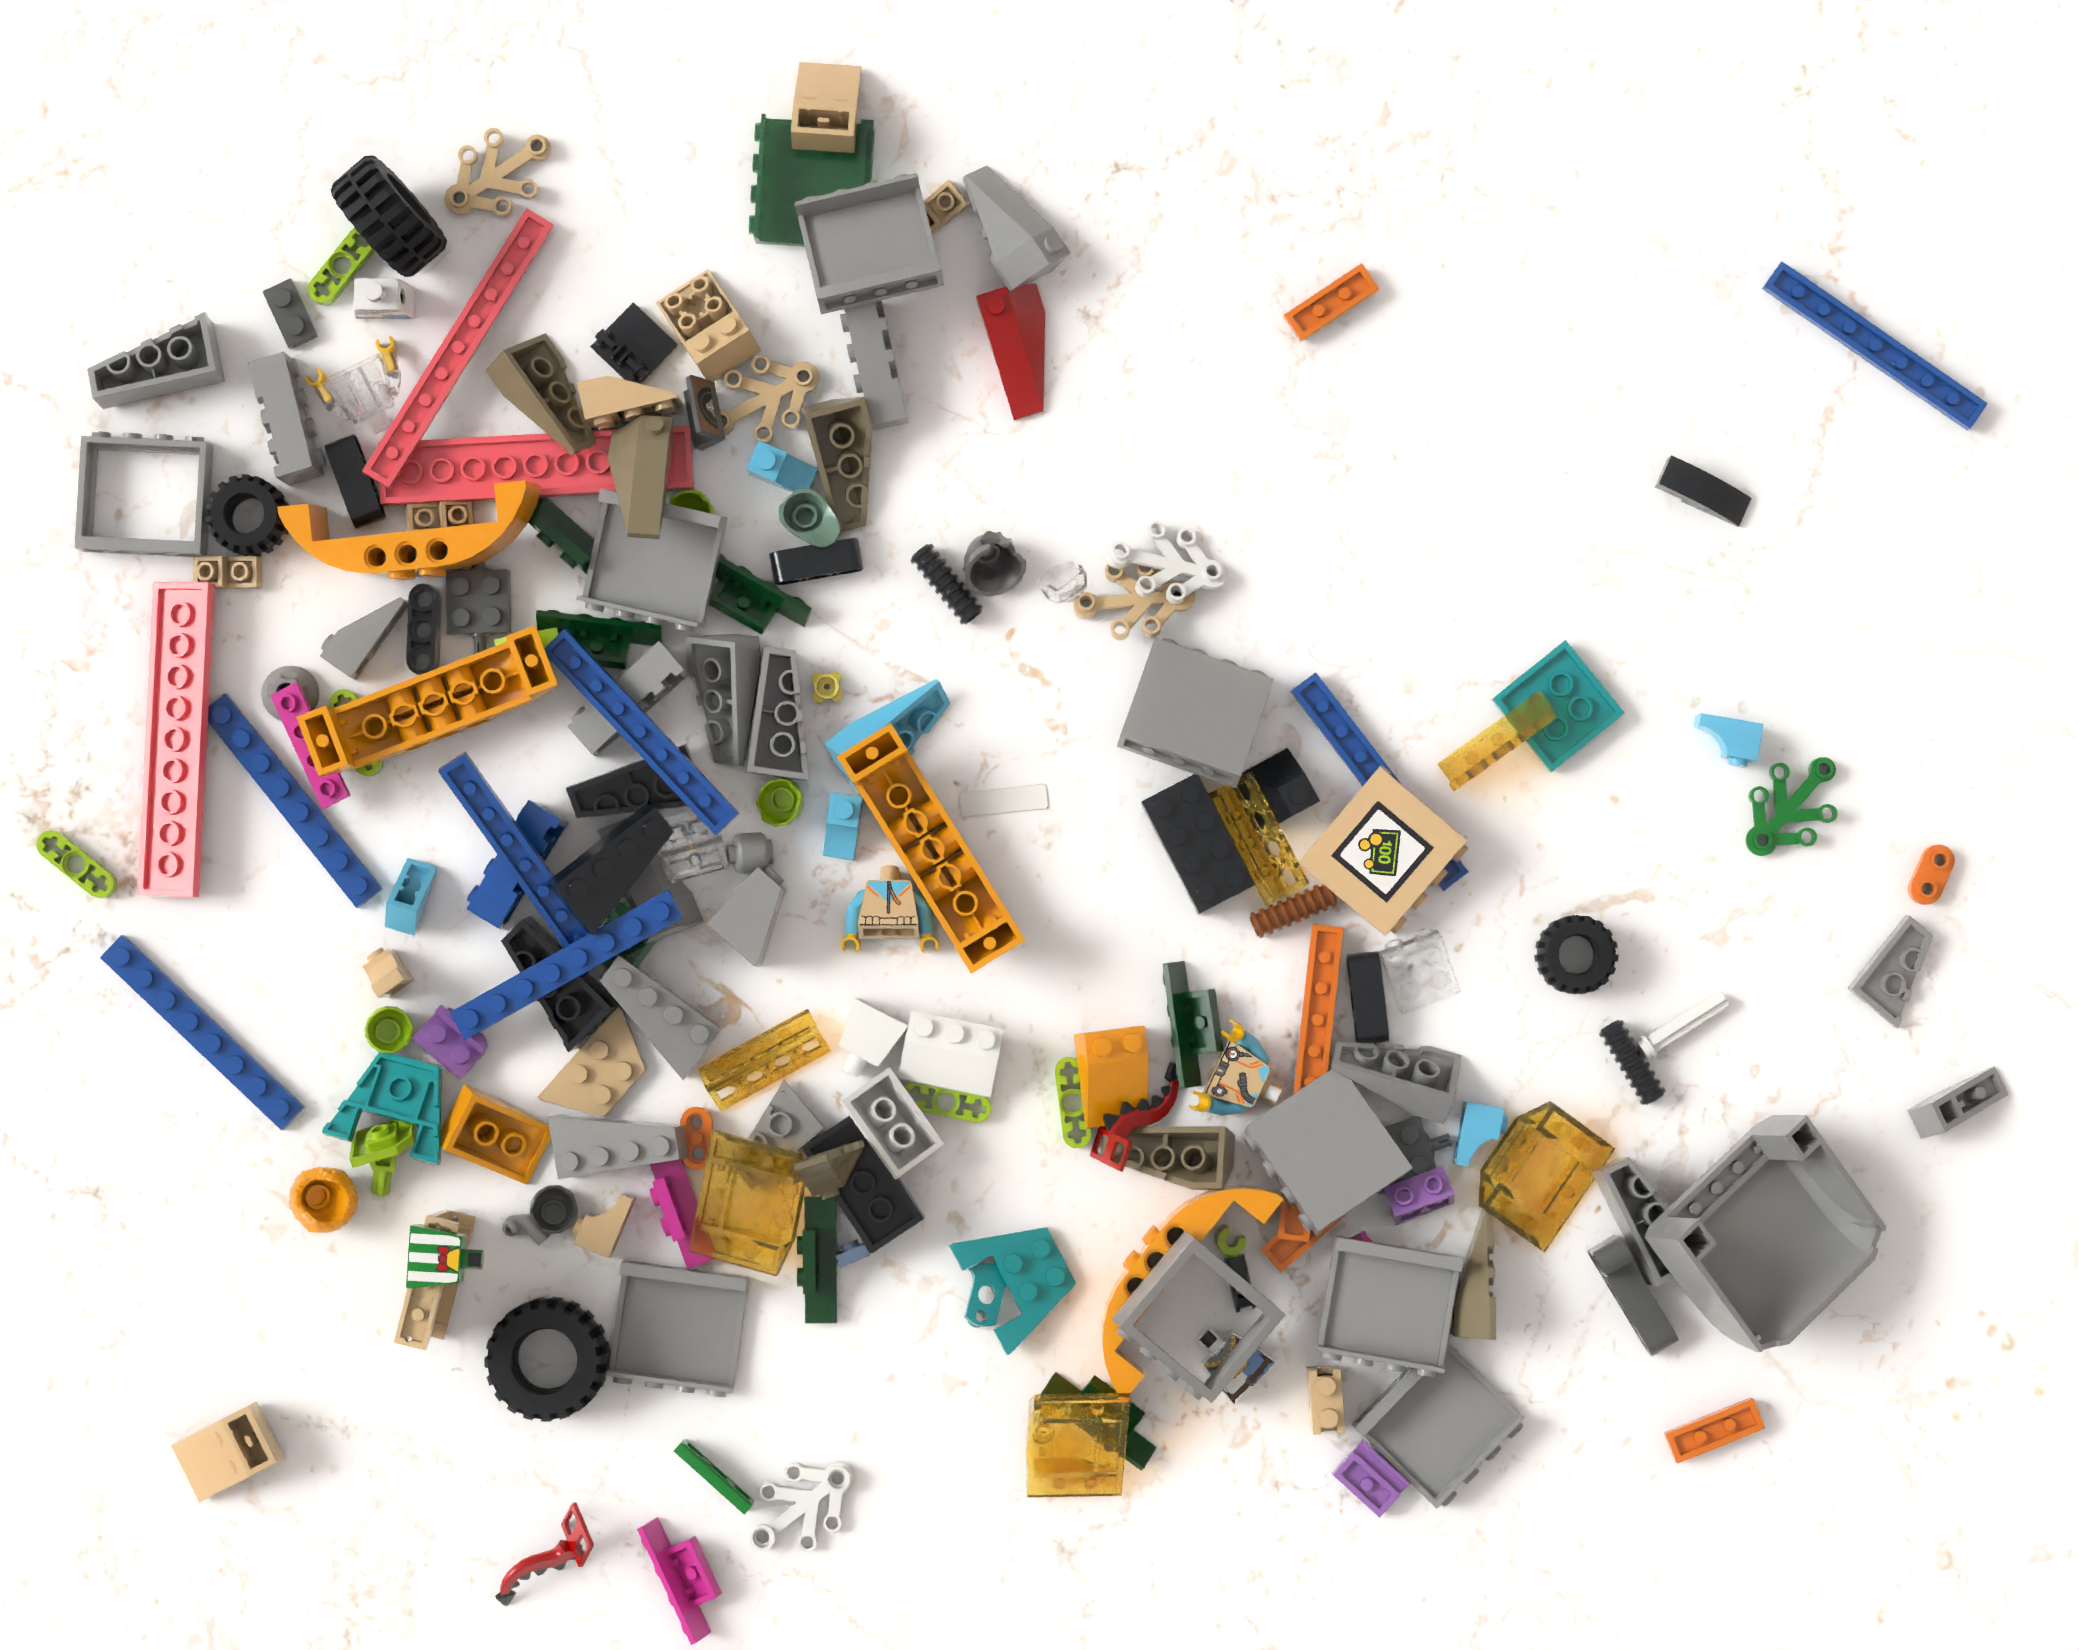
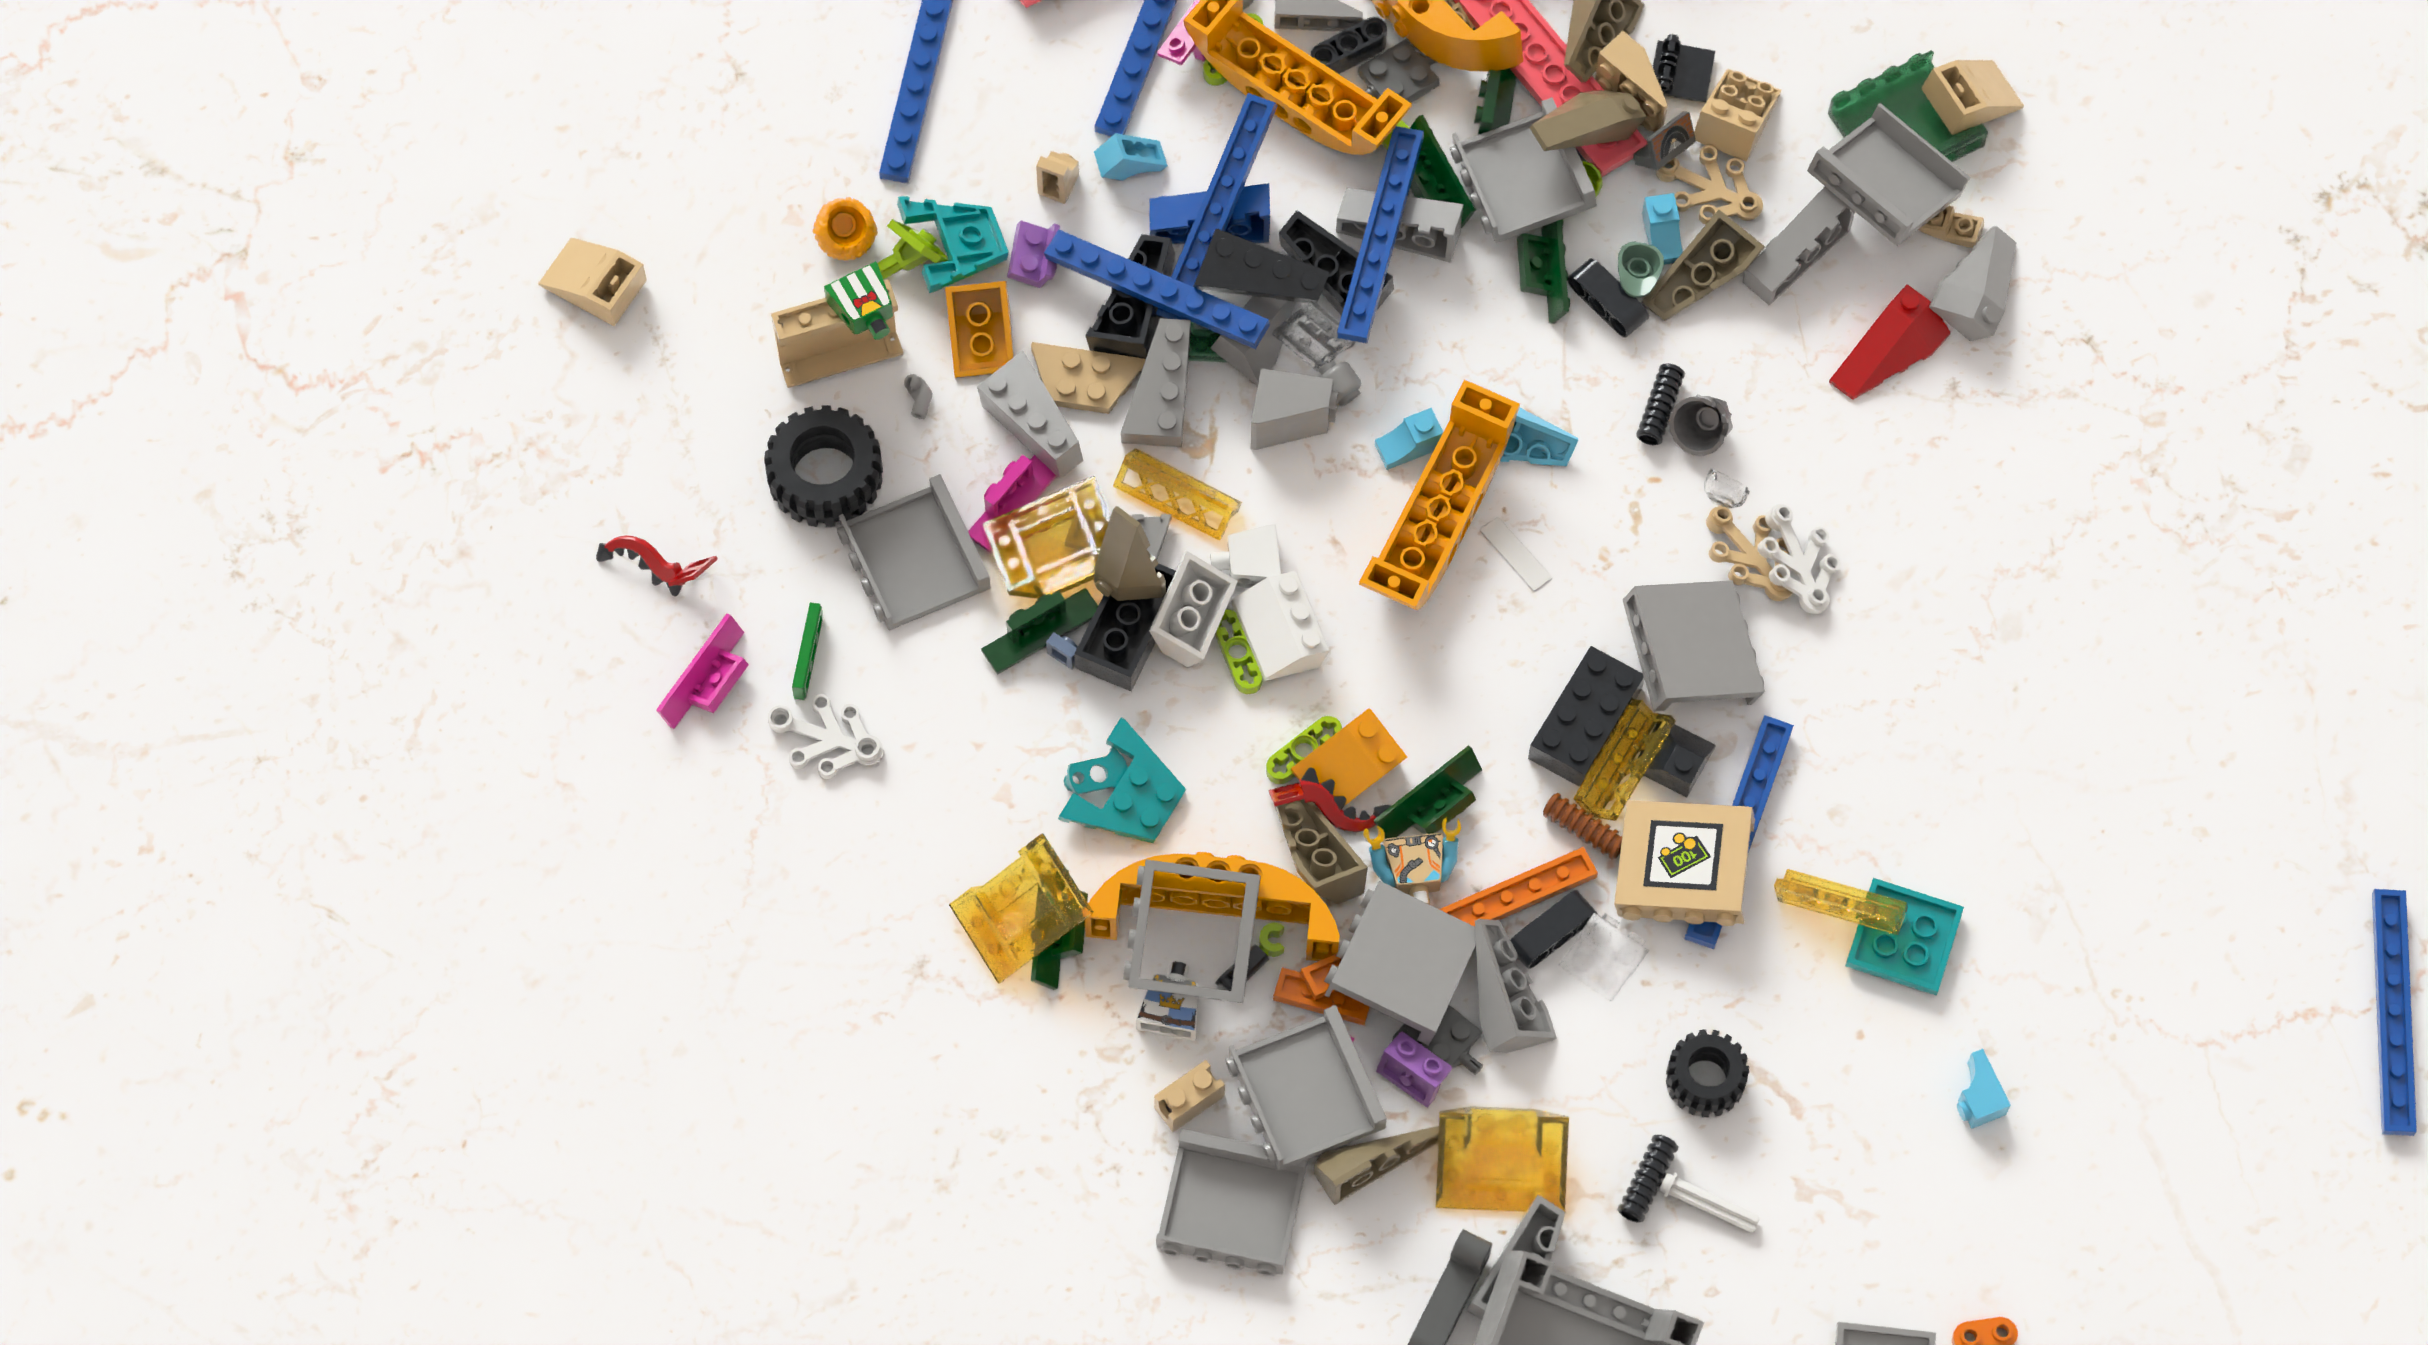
camera: 55 degrees right, 20 degrees down
(388, 1029) = (1013, 201): lime hair -> none
(553, 1209) = (949, 402): dark grey hair -> none
(602, 1231) = (959, 452): tan arch -> none
(697, 1136) = (1079, 473): orange plate -> none
(726, 679) = (1468, 285): light grey wedge -> none
(777, 728) = (1460, 339): light grey wedge -> none
(780, 802) = (1396, 381): lime hair -> none
(820, 680) = (1513, 357): light yellow plate -> none
(889, 911) = (1364, 511): torso -> none
(1331, 302) = (2103, 560): orange plate -> none
(1370, 1478) = (1145, 1176): medium lavender plate -> none
(1476, 1127) = (1504, 1082): medium azure arch -> none
(1703, 491) = (2169, 943): black slope -> none
(1787, 810) = (1953, 1179): green plant -> none

